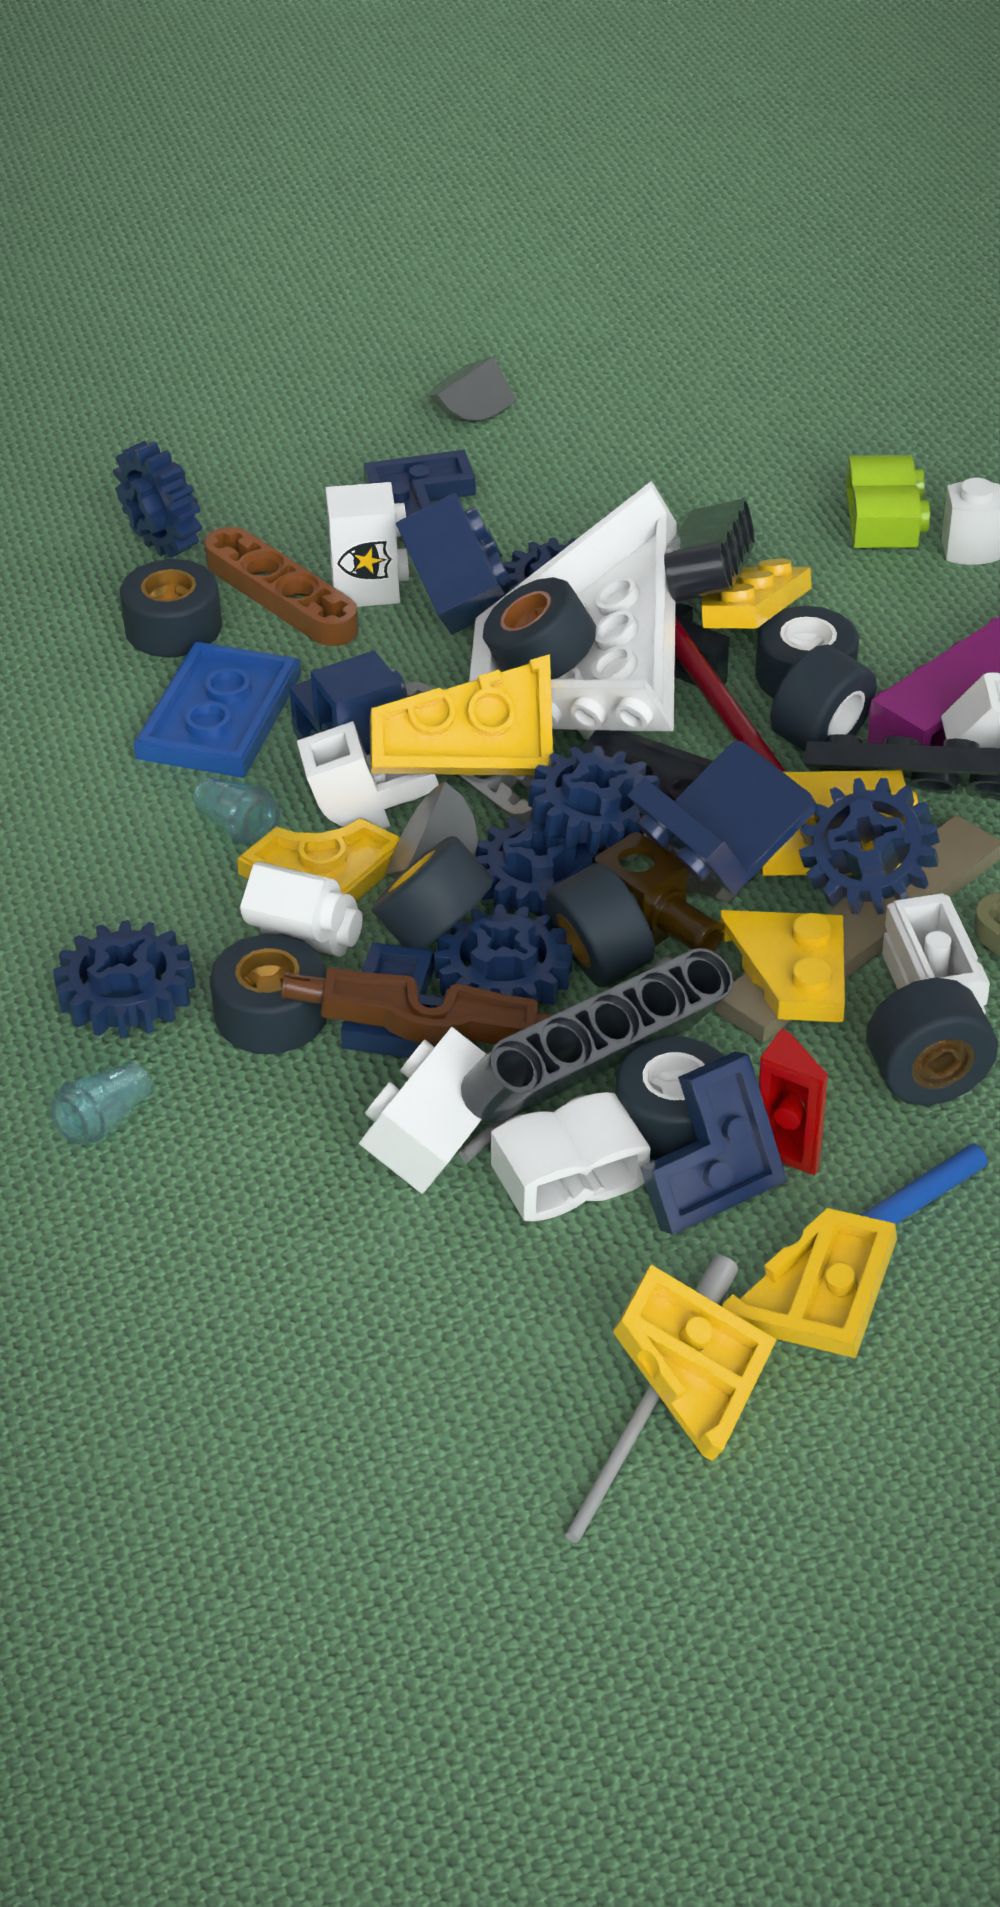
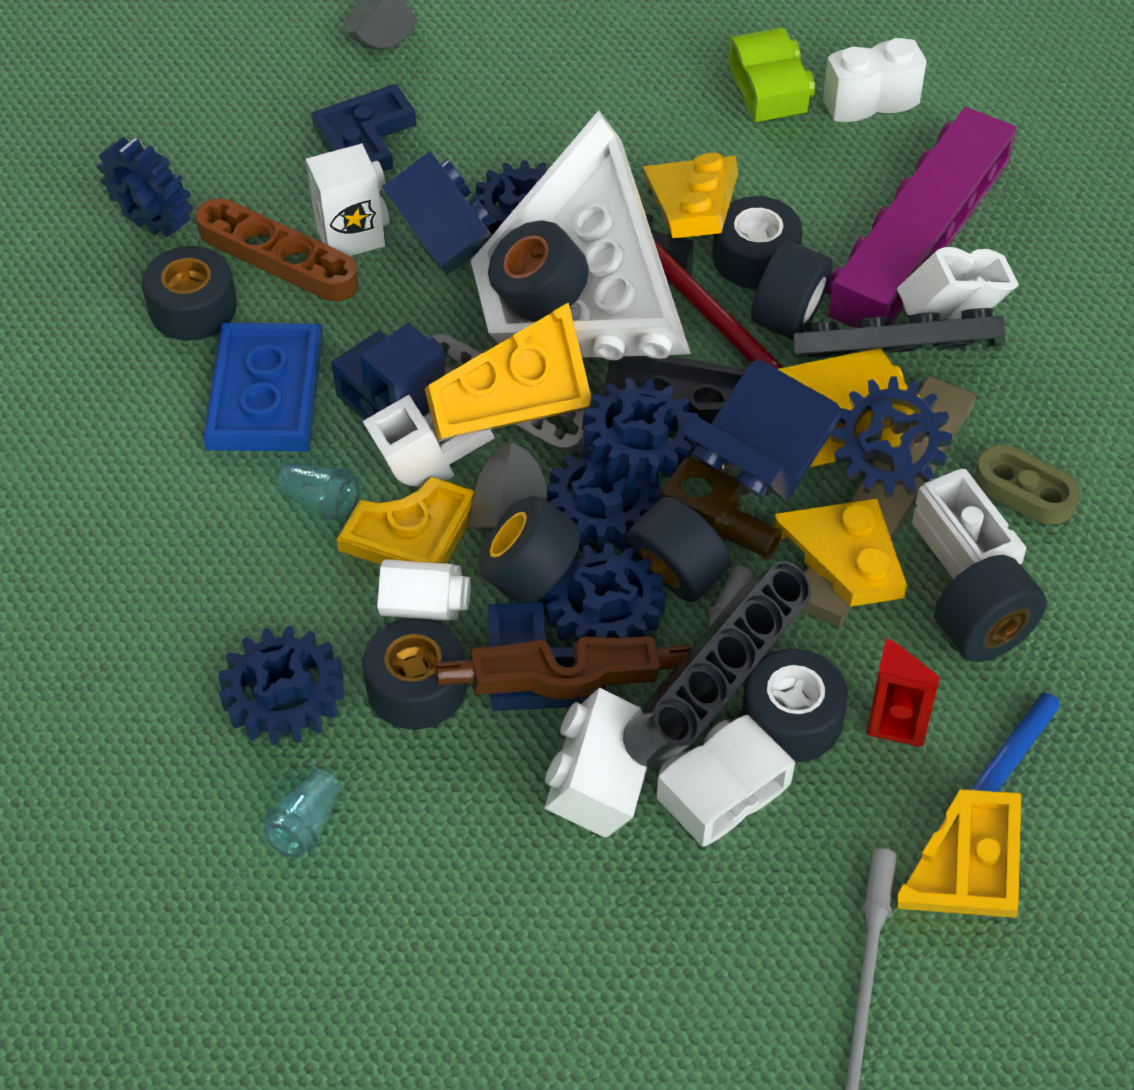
camera: 15 degrees left, 10 degrees up
(693, 1356) = (895, 954): yellow wing -> none
(709, 550) = (654, 160): black beam -> none
(733, 1151) = (861, 750): dark blue plate -> none

